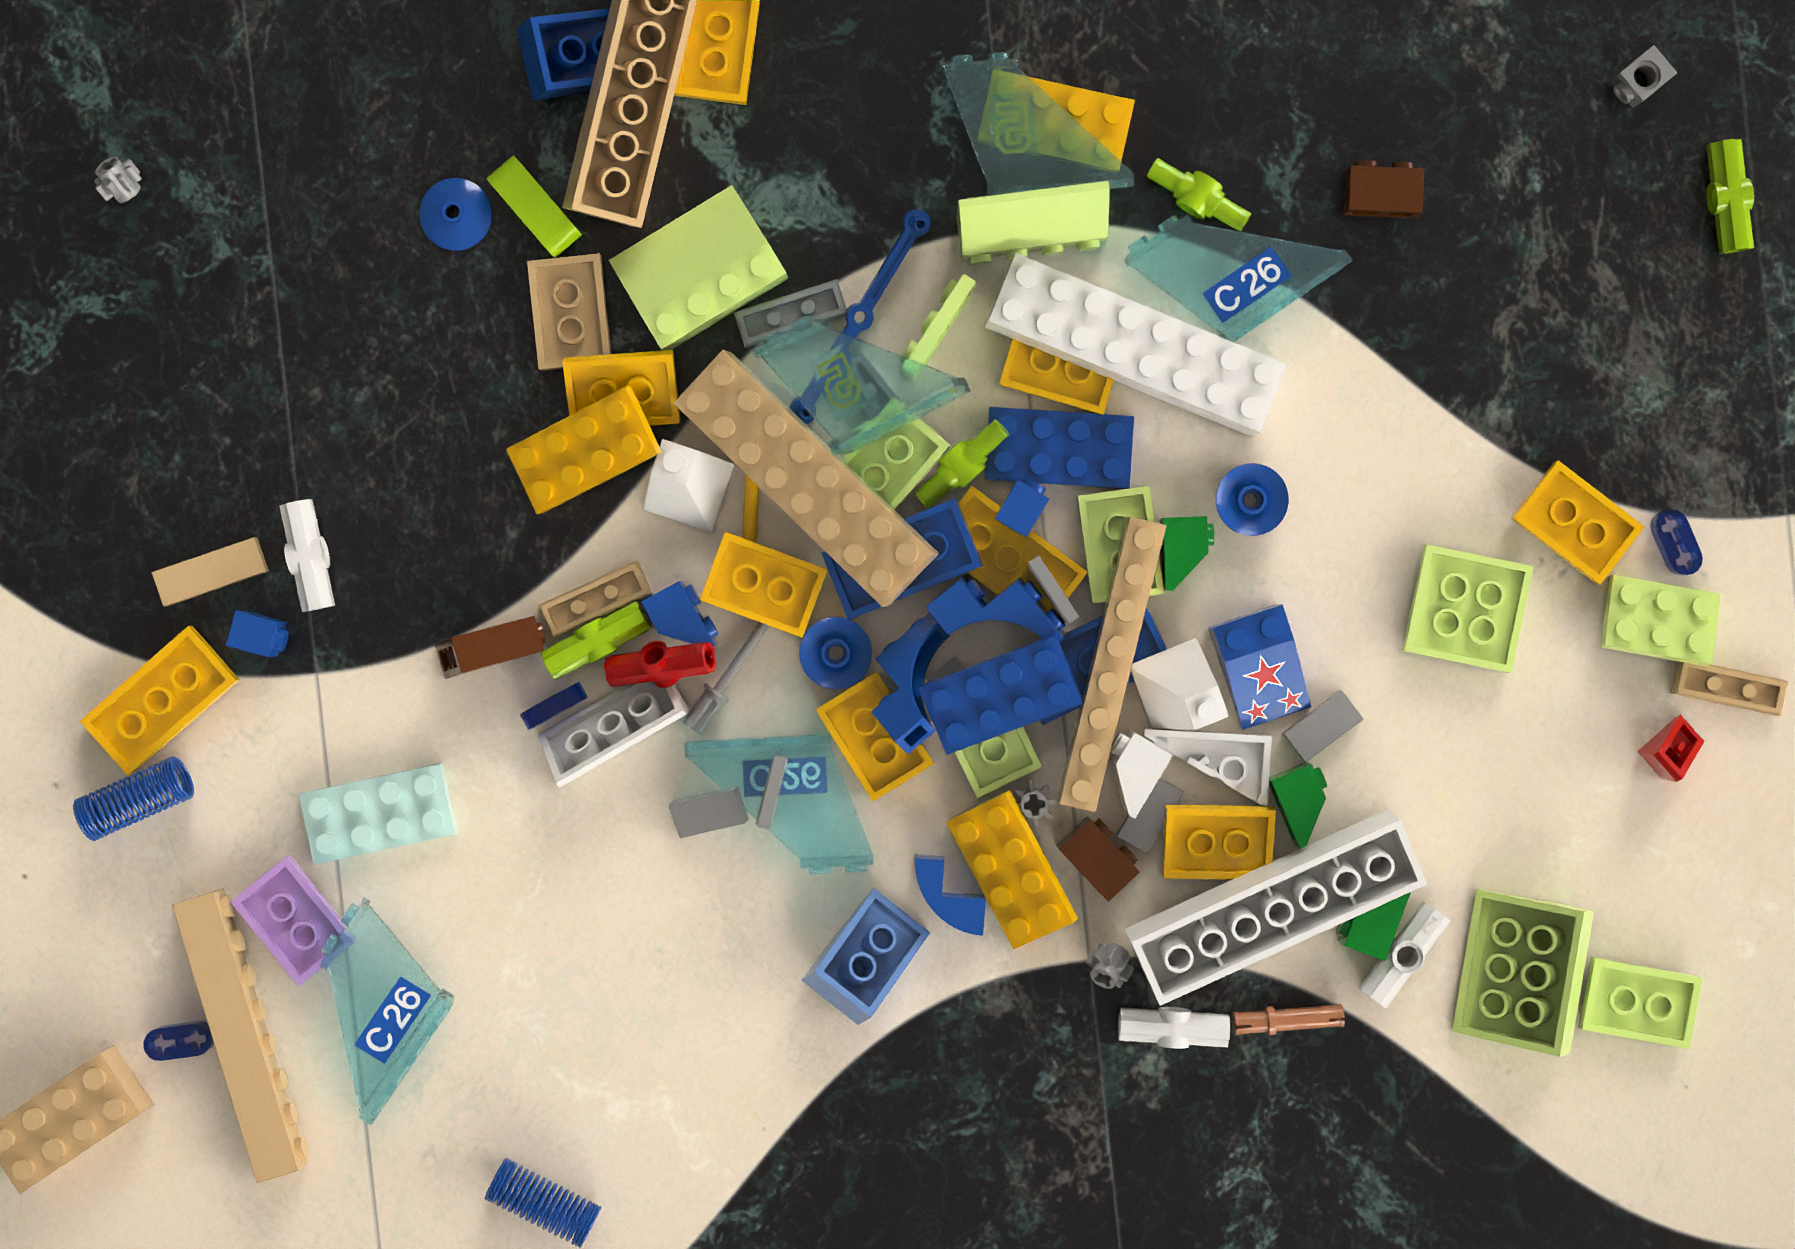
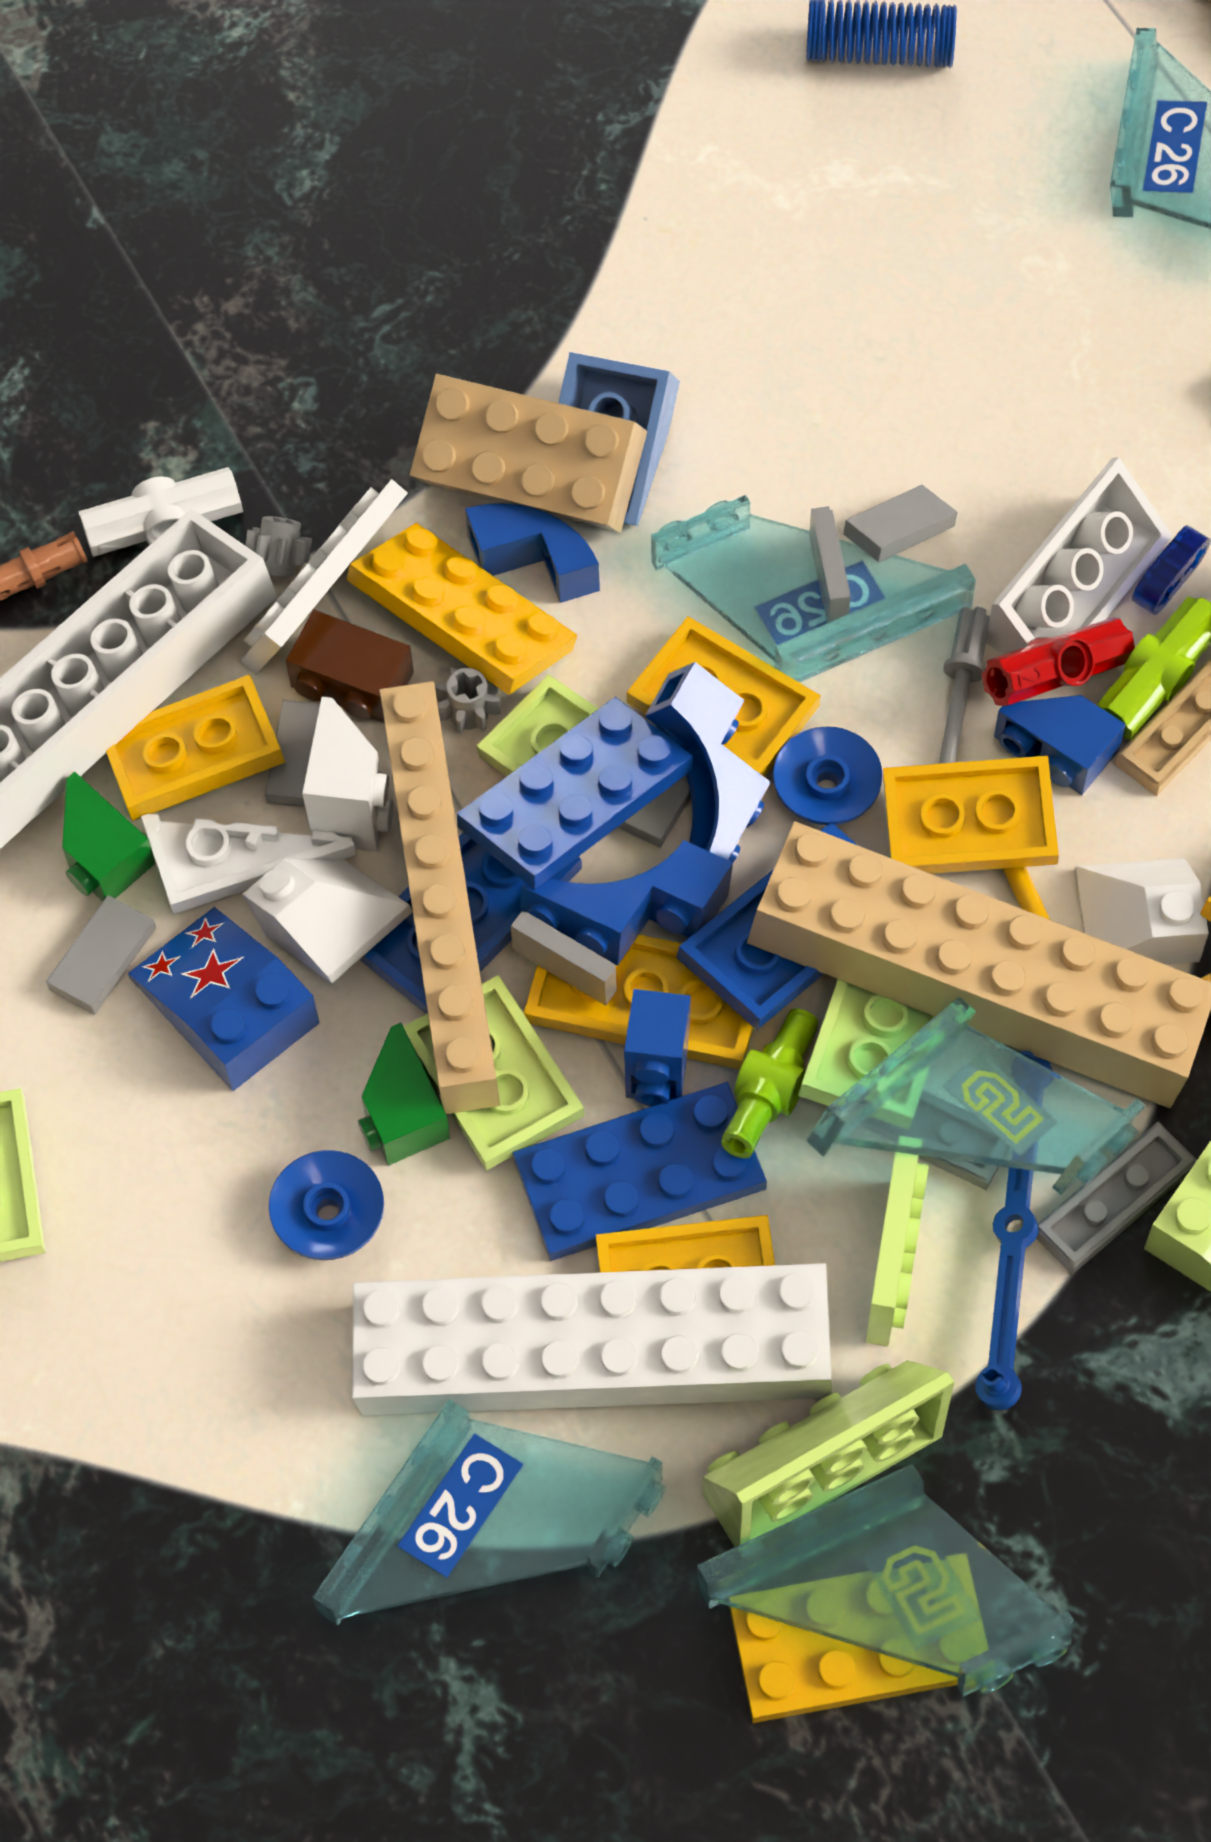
camera: 160 degrees right, 25 degrees down
(926, 958) = (528, 452): none -> tan brick
(1098, 919) = (320, 574): none -> white plate
(1199, 195) = (590, 1612): lime pin -> none
(1383, 190) = (305, 1739): reddish brown brick -> none

